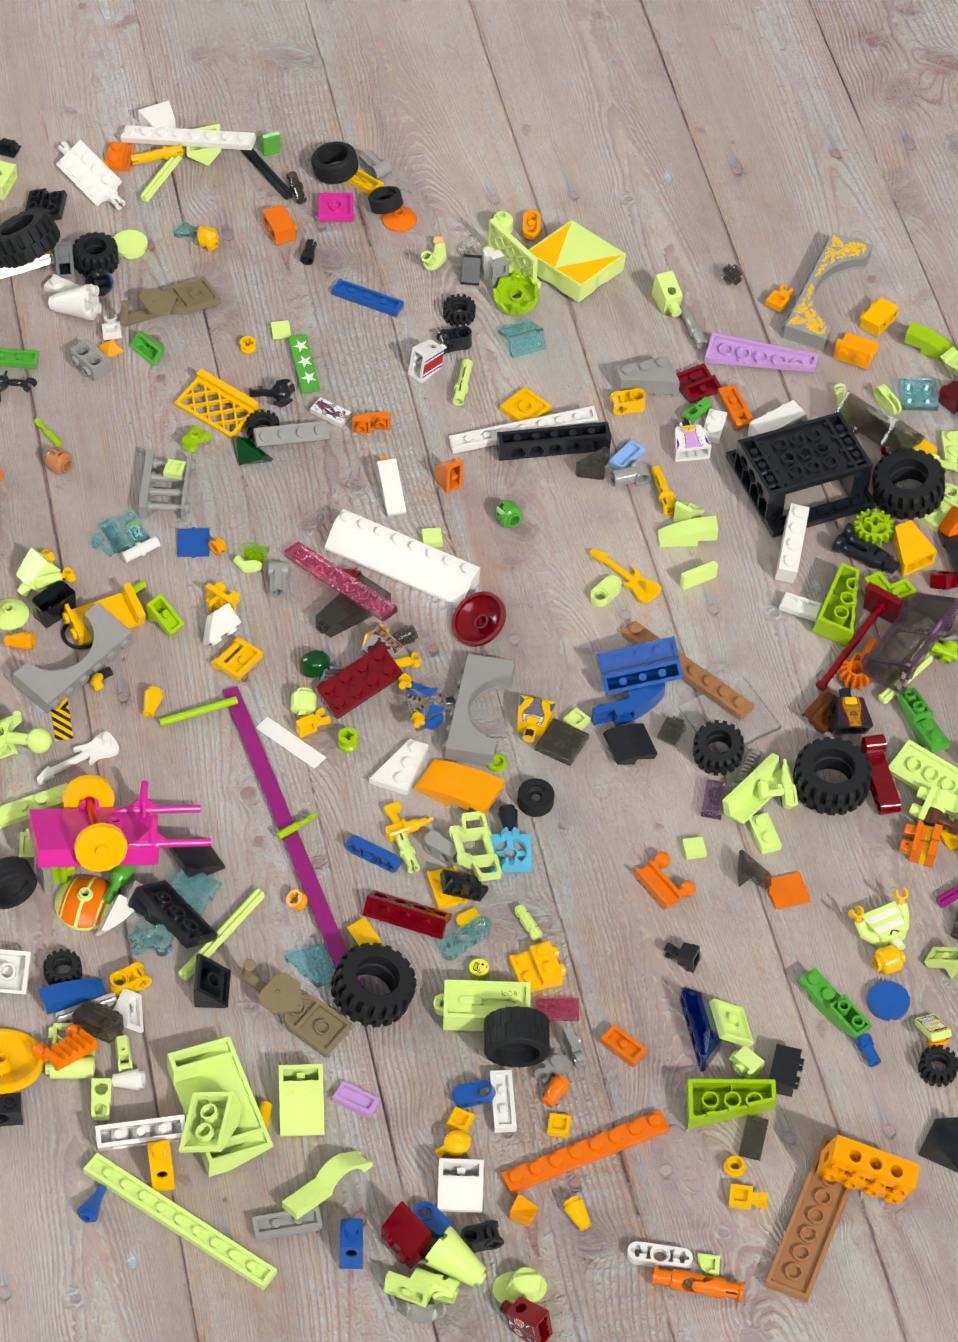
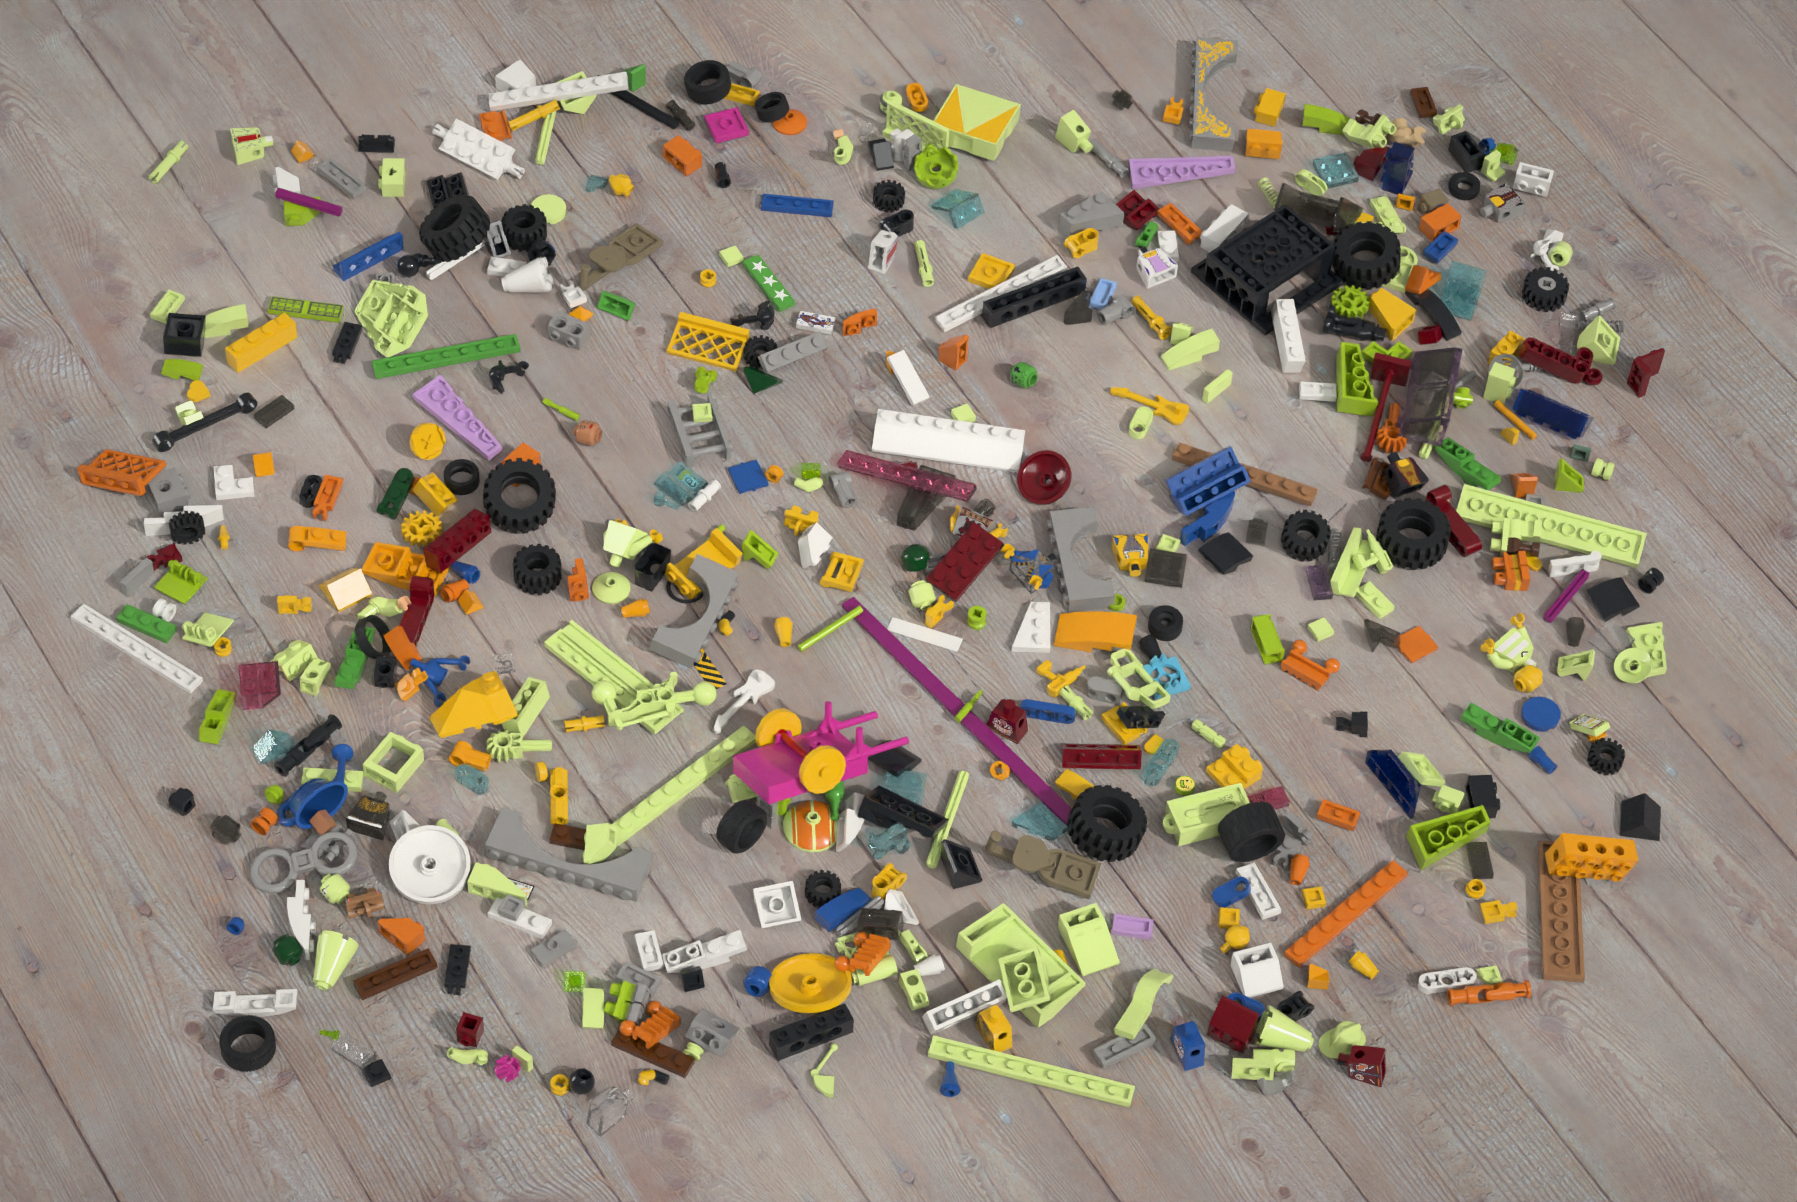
camera: 20 degrees left, 0 degrees up
(327, 852) = (1008, 721): none -> dark red torso
(632, 842) = (1267, 639): none -> lime window

